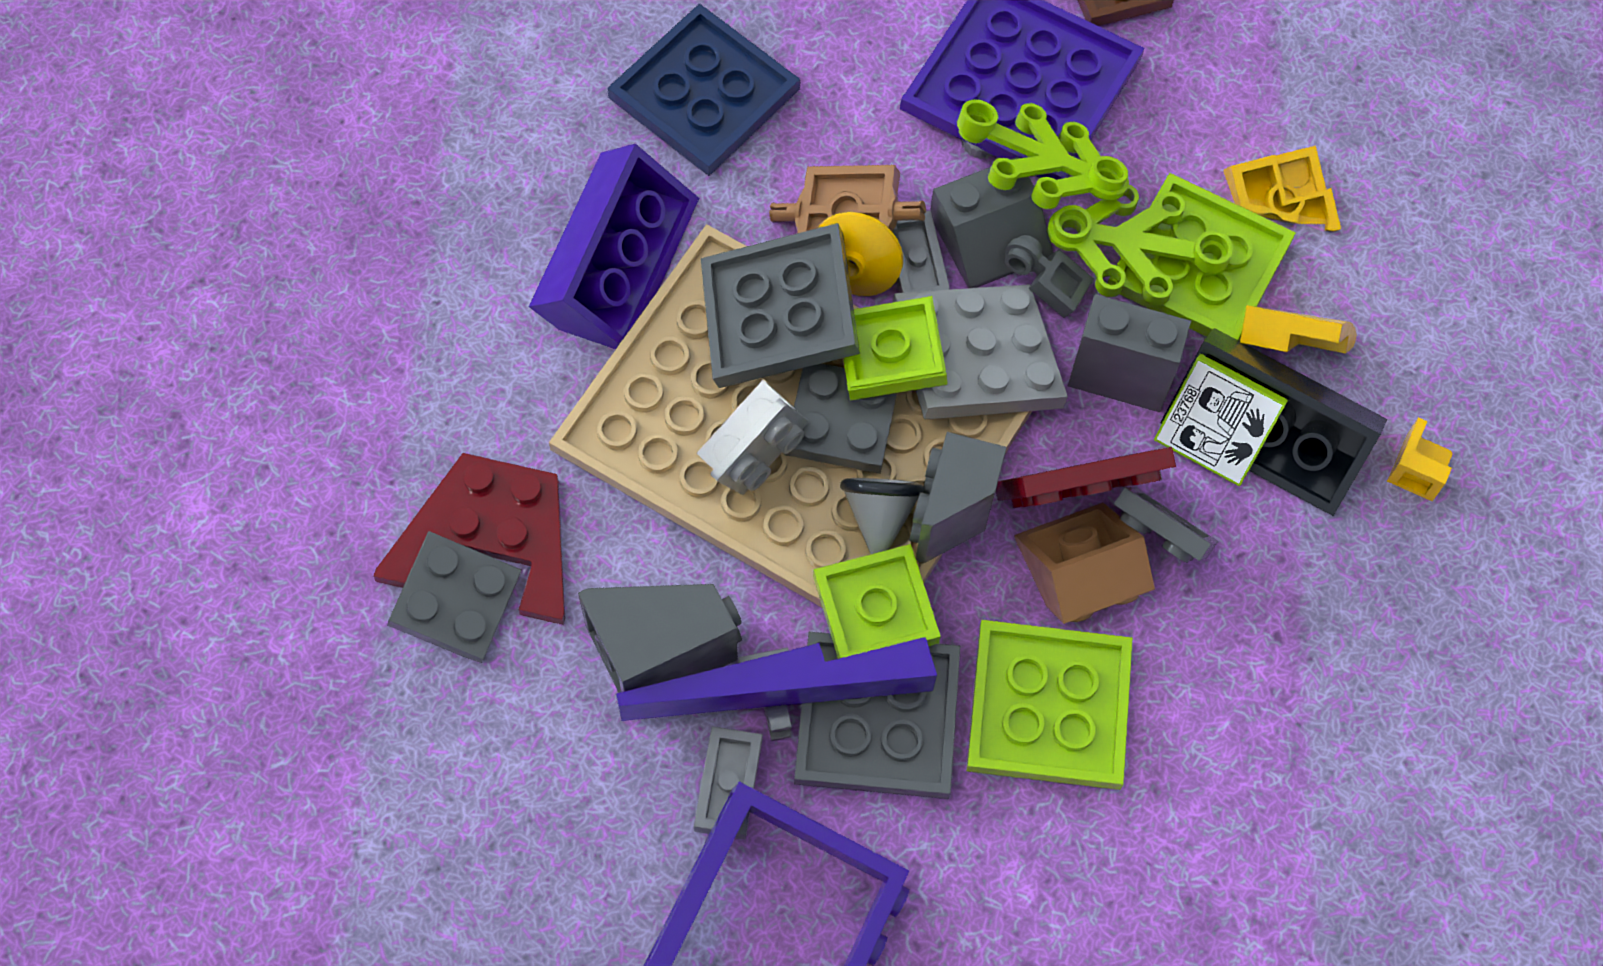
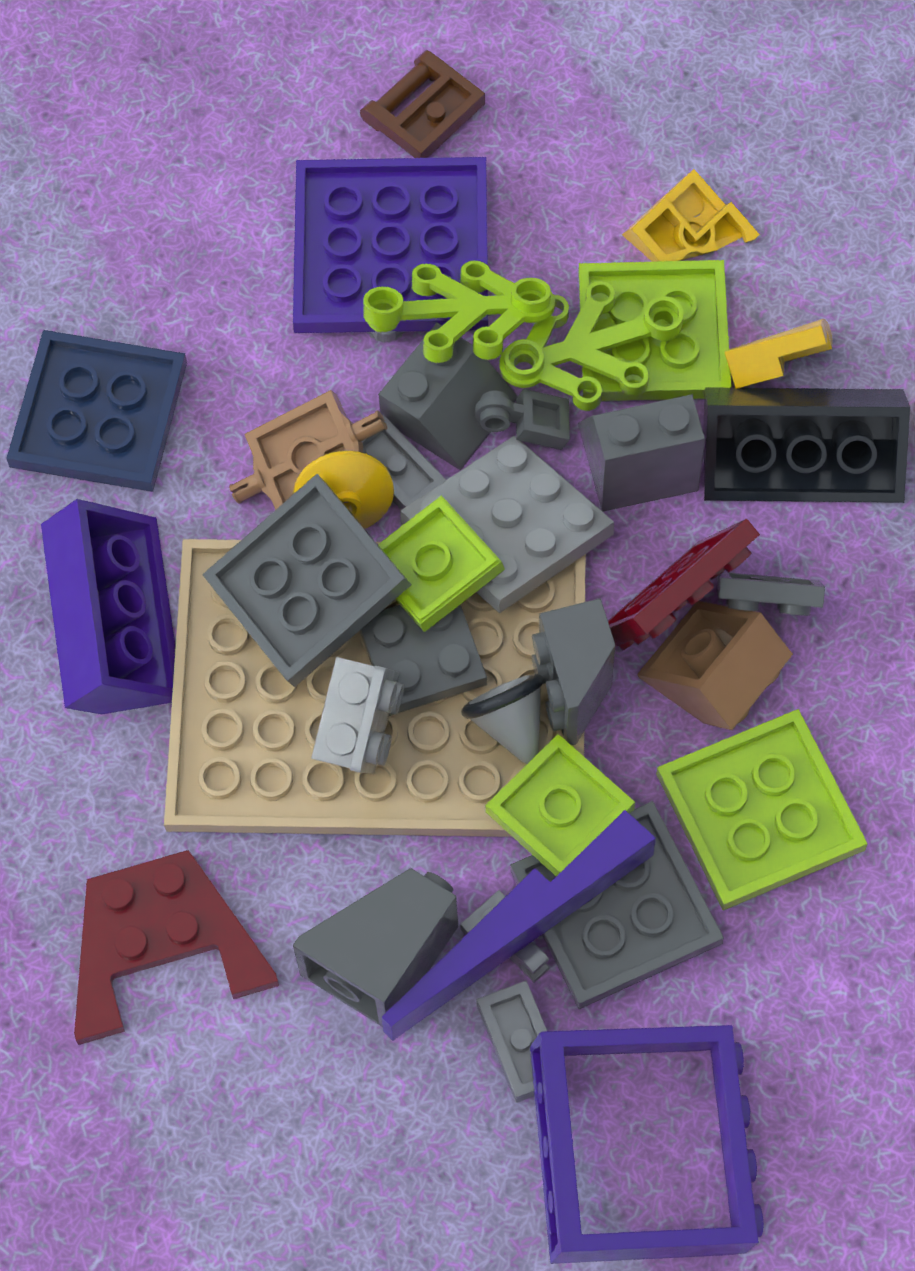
camera: 25 degrees left, 0 degrees up
(454, 597) = (165, 1017): dark grey plate -> none
(1220, 419) = (760, 469): tile -> none

